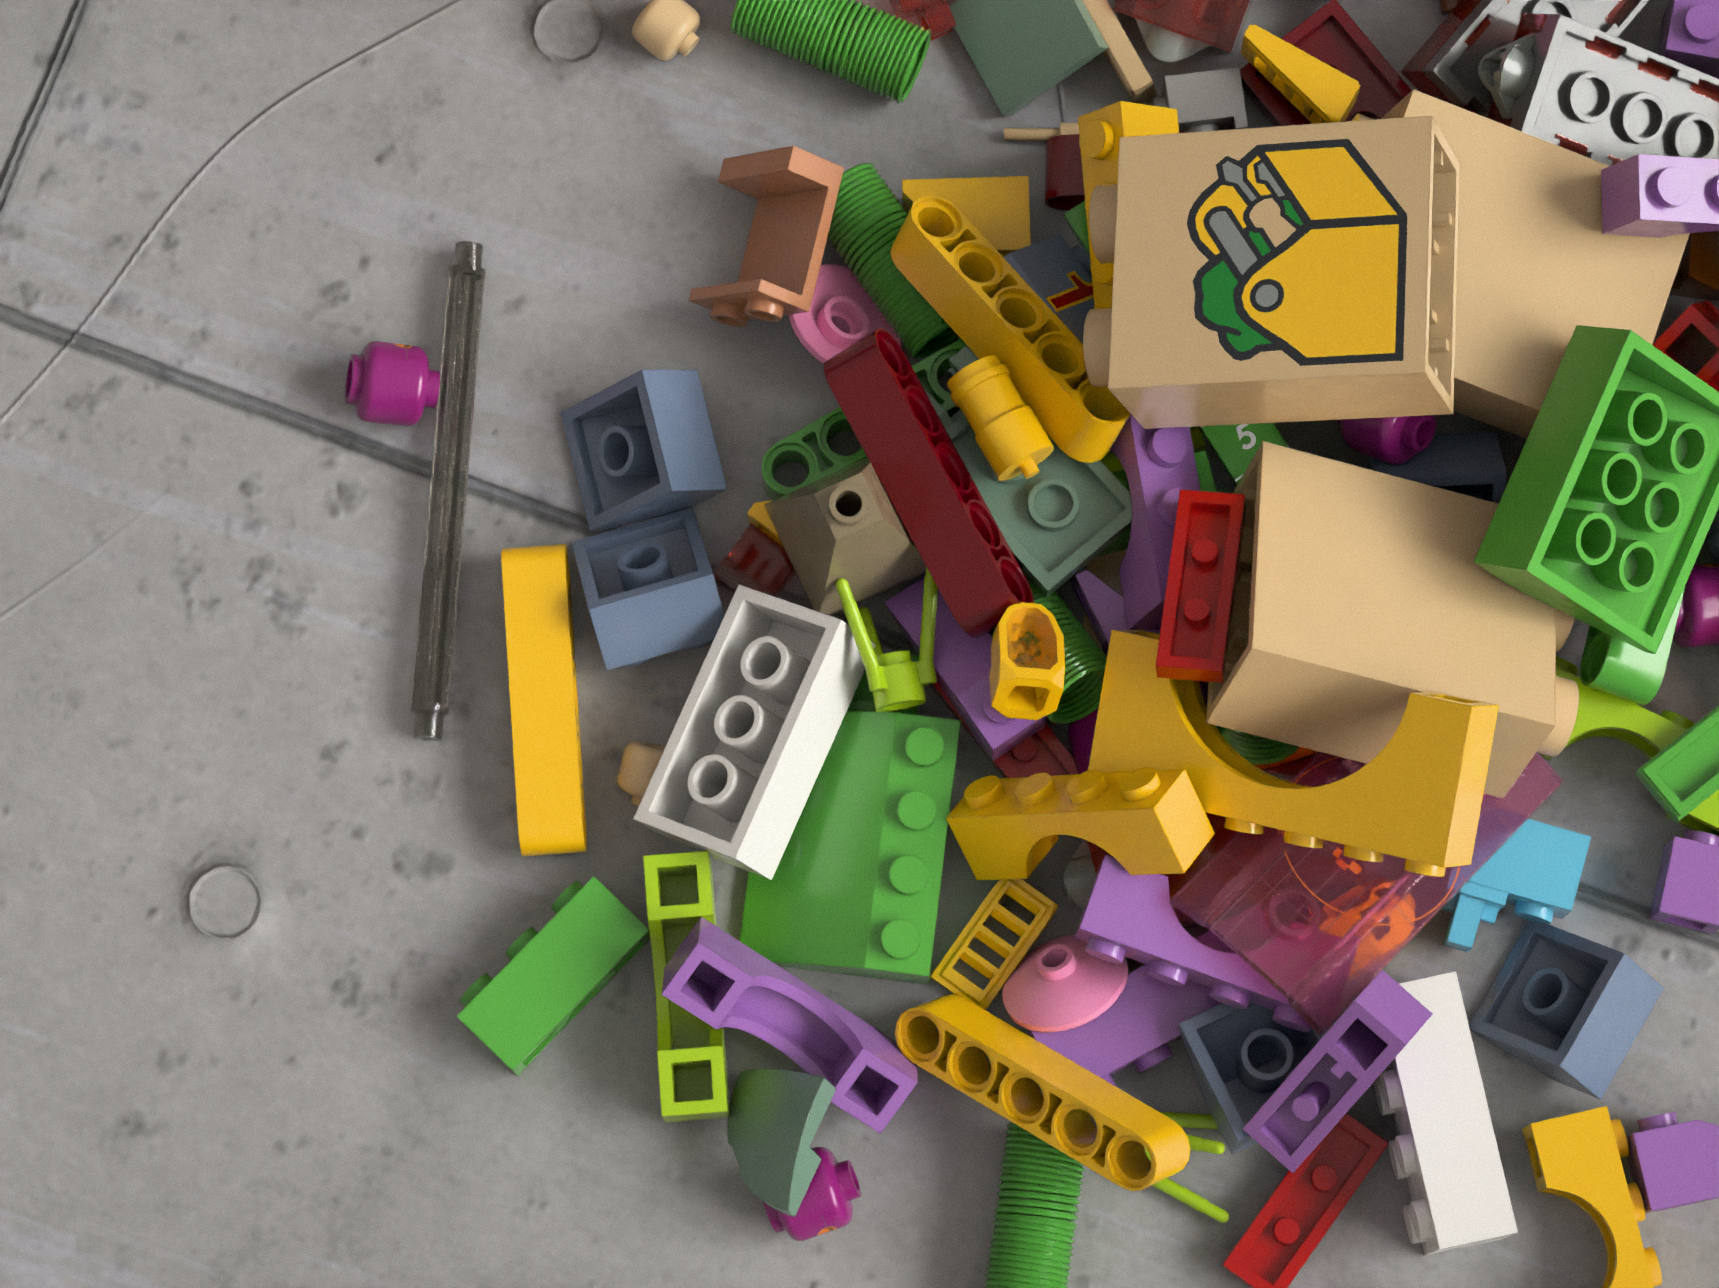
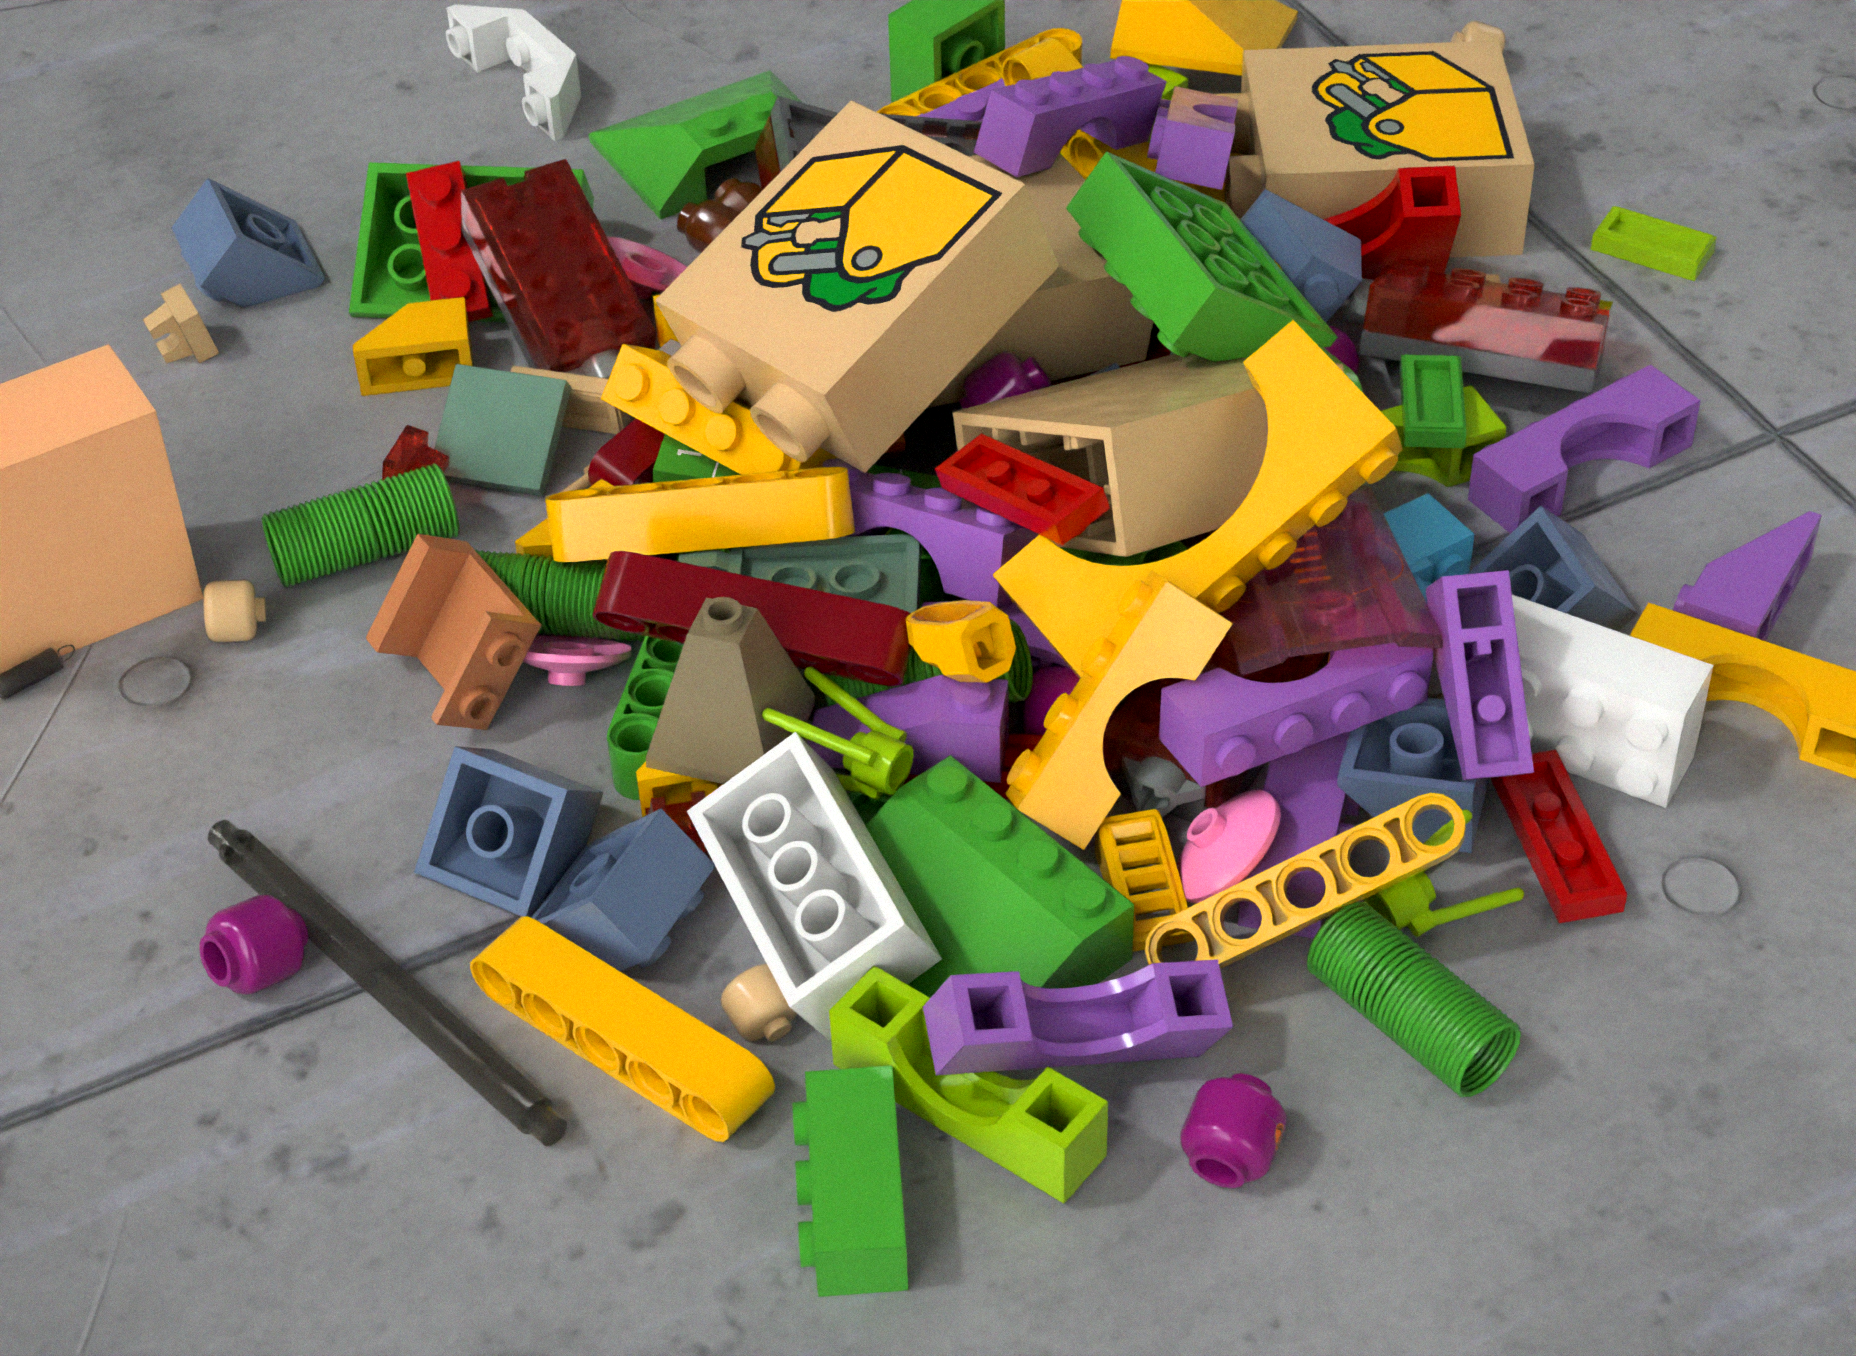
camera: 50 degrees left, 35 degrees down
(772, 1132) = (1162, 1091): sand green brick -> none
(1000, 419) = (760, 546): yellow piece -> none

